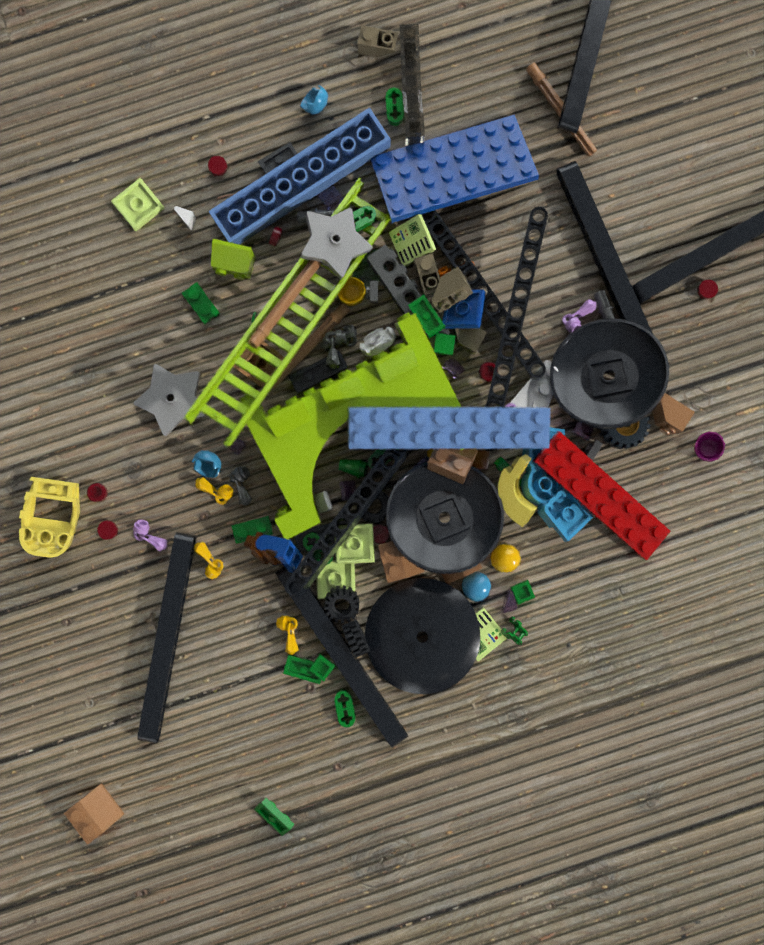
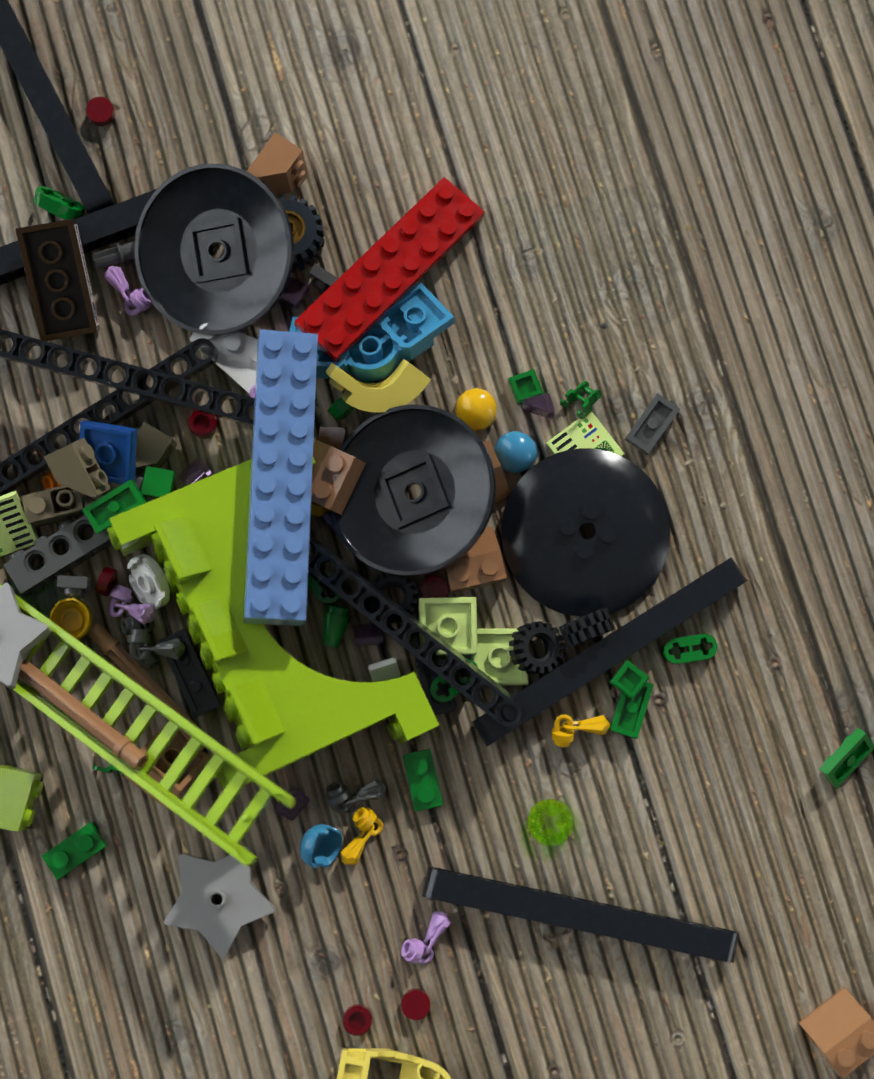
camera: 90 degrees left, 5 degrees down
(212, 570) = (481, 842): yellow piece -> none
(236, 615) = (536, 821): none -> clear neon green gear
(274, 550) = (454, 744): blue hips -> none
(356, 339) = (142, 612): none -> lavender piece
(377, 313) = (106, 581): none -> dark red tile
(499, 680) = (652, 424): none -> dark grey plate
(583, 268) = (58, 279): none -> dark brown brick
(638, 264) = (58, 203): none -> green beam
(709, 446) = (325, 117): magenta hair -> none

